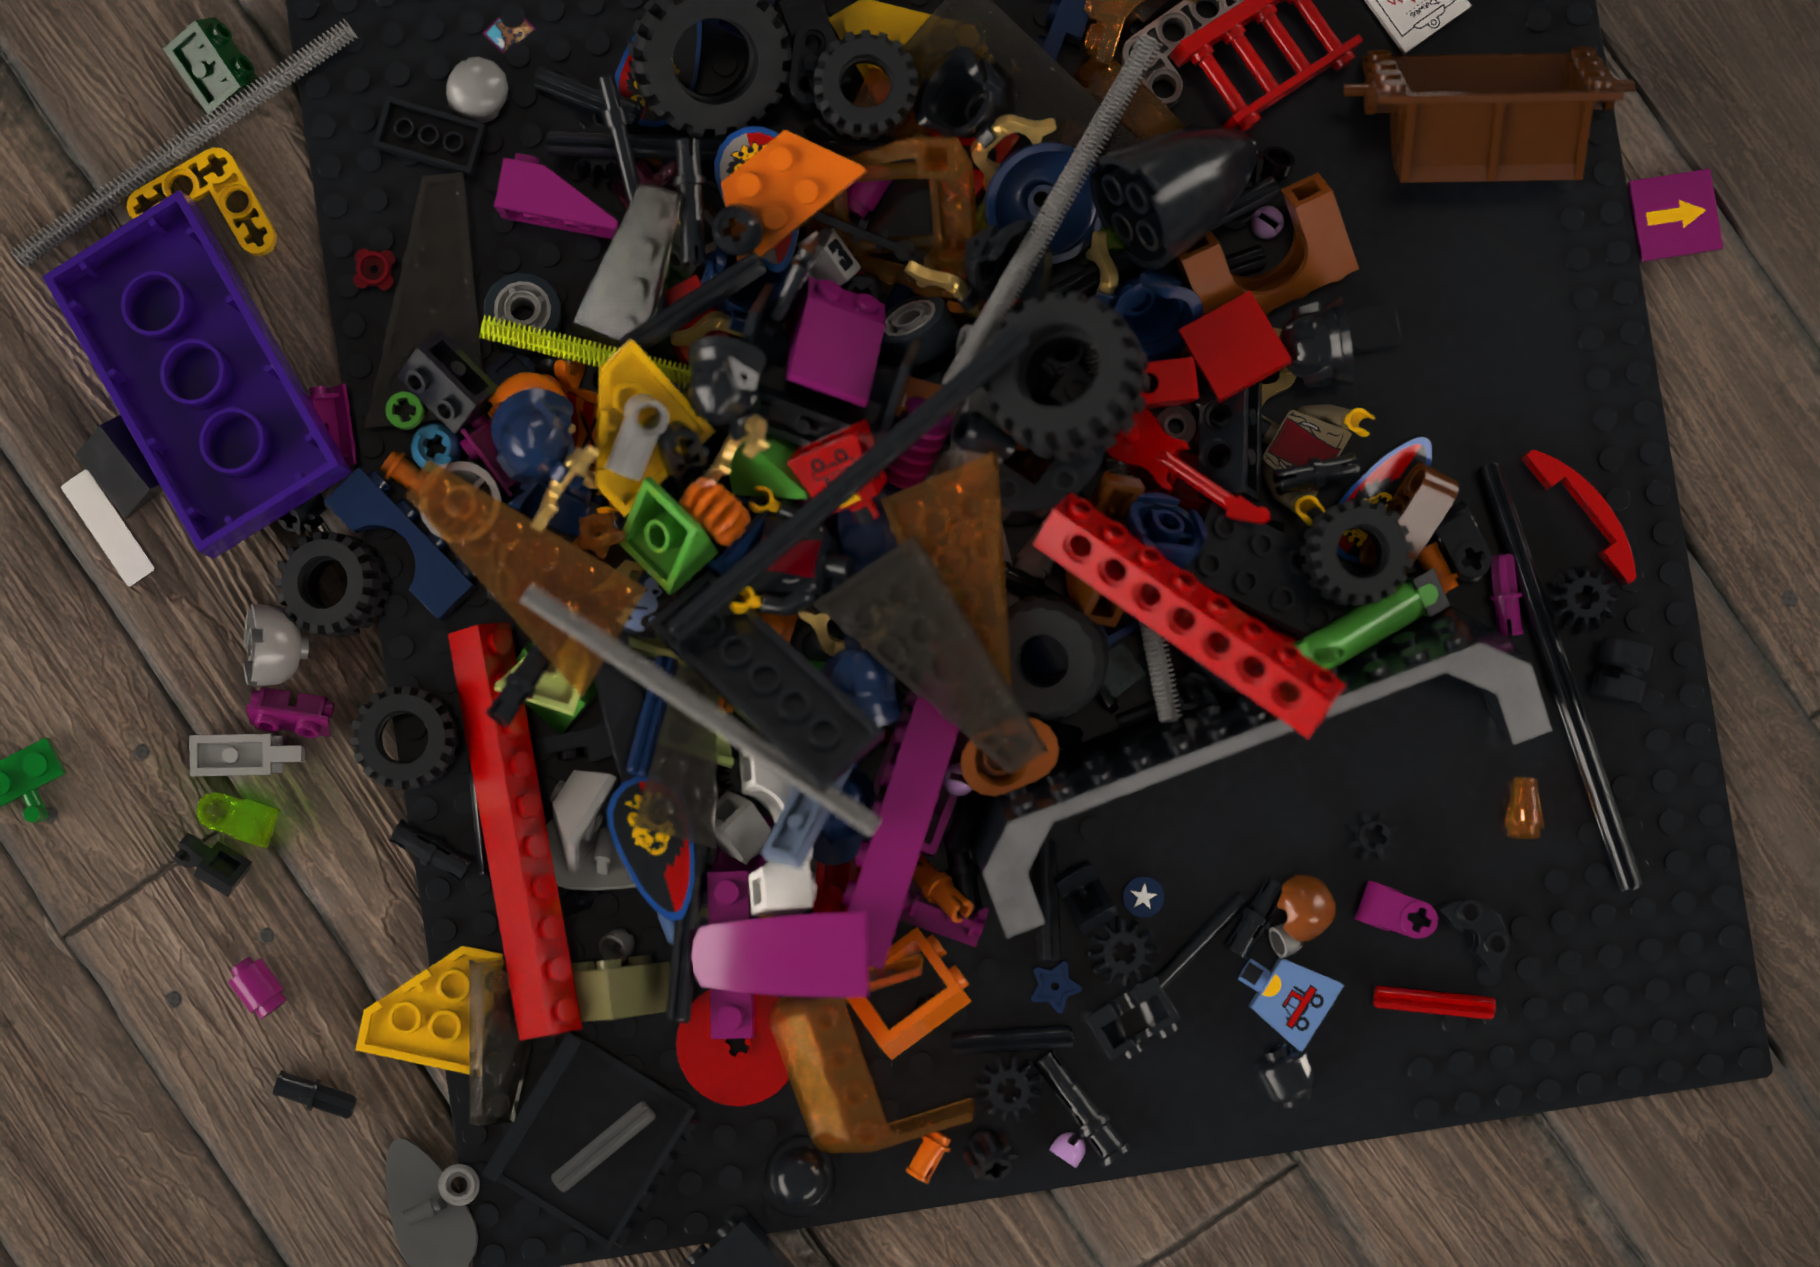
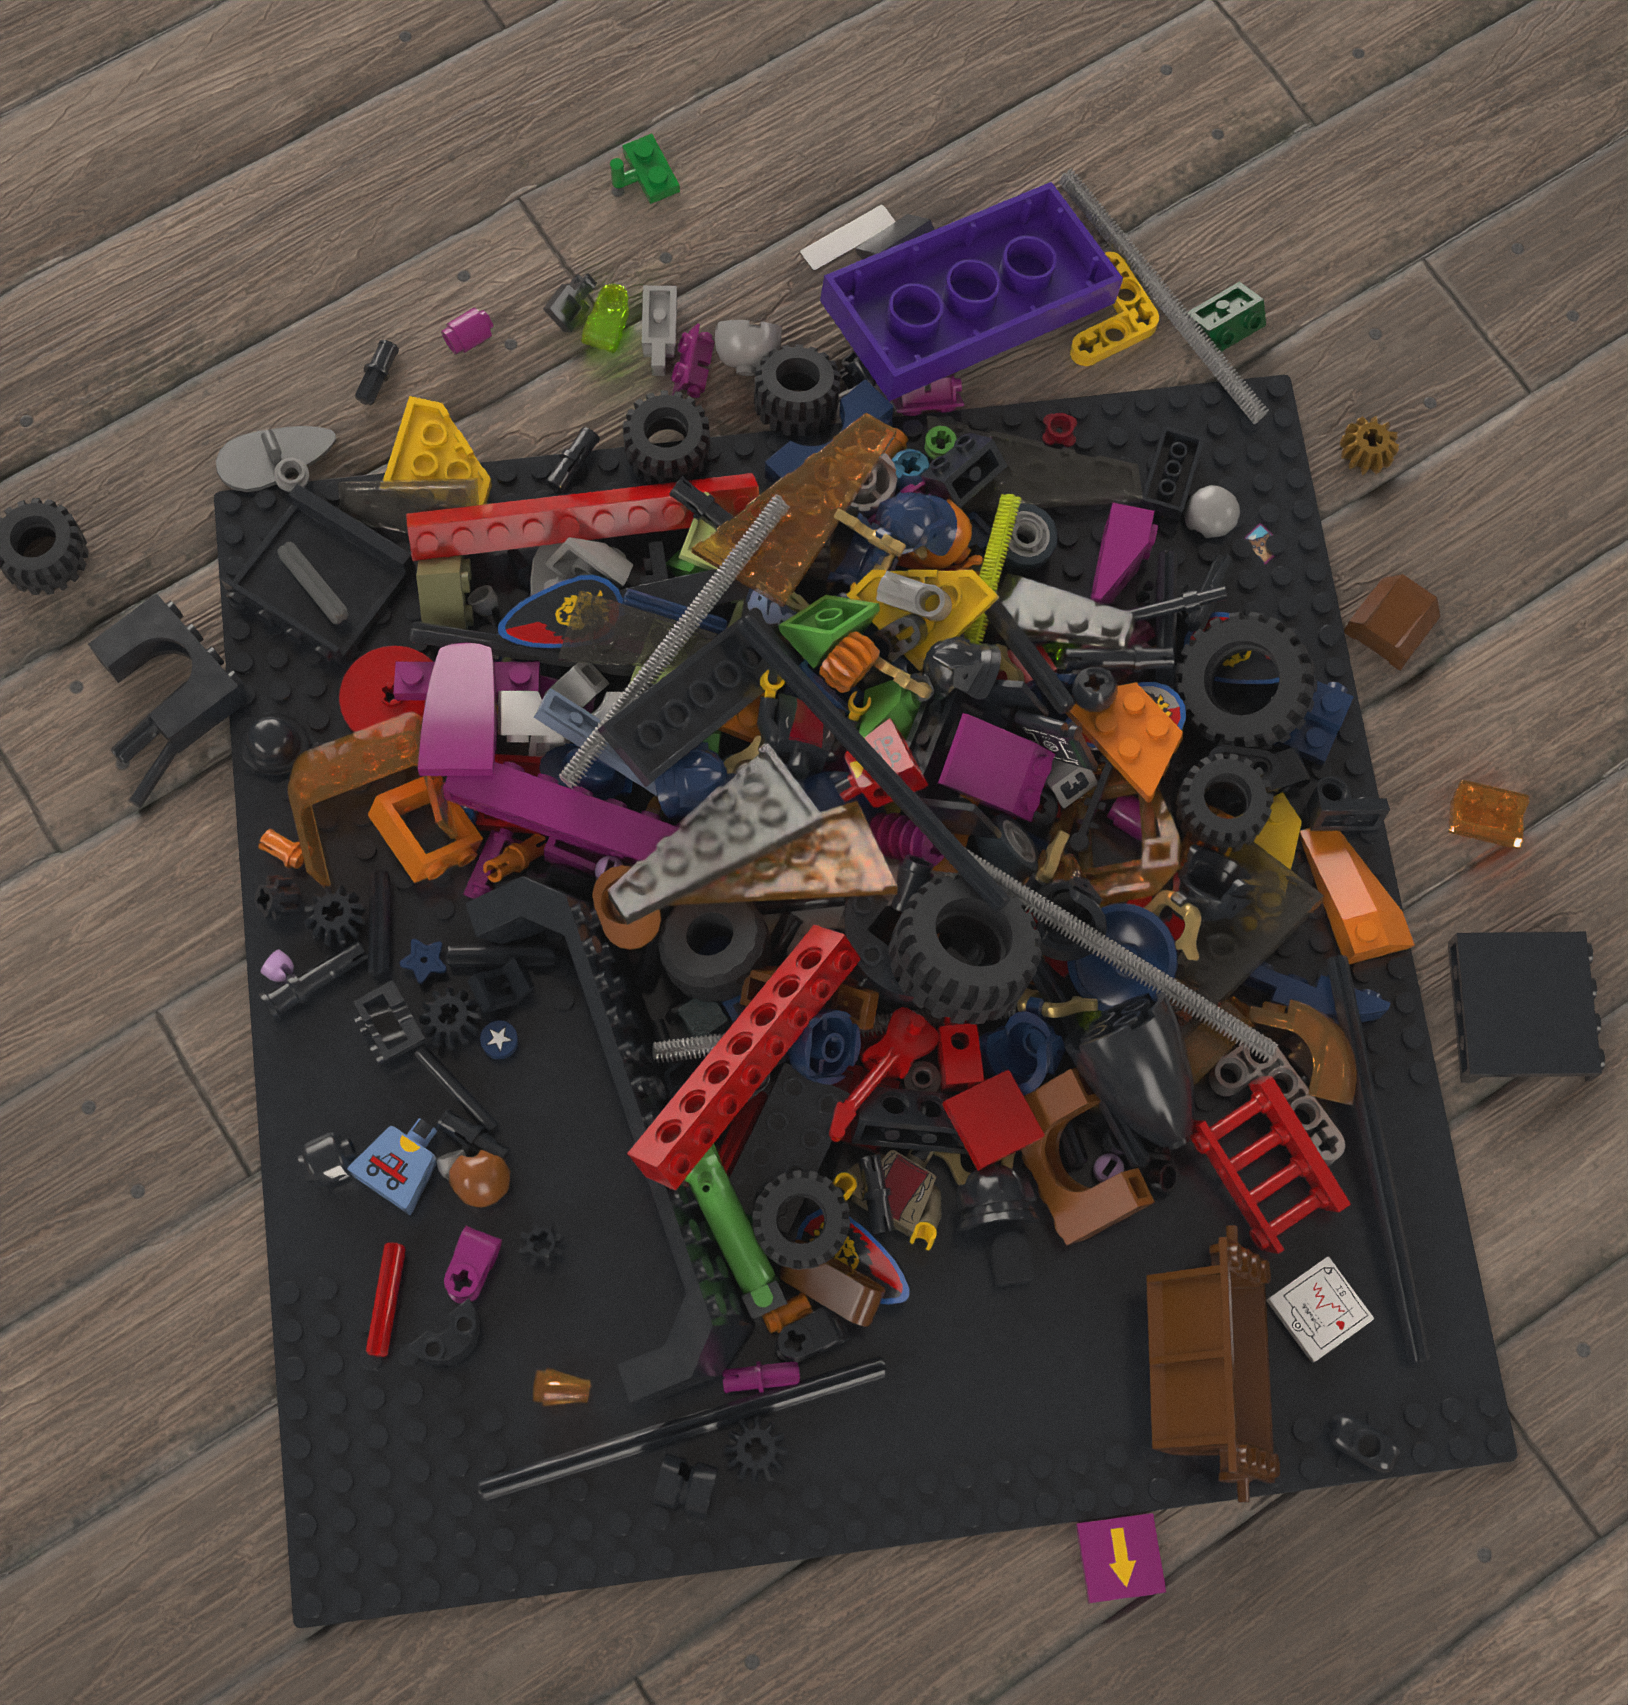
camera: 85 degrees right, 15 degrees down
(598, 523) = (838, 570): clear orange plate -> none
(1618, 553) = (799, 1484): red slope -> none

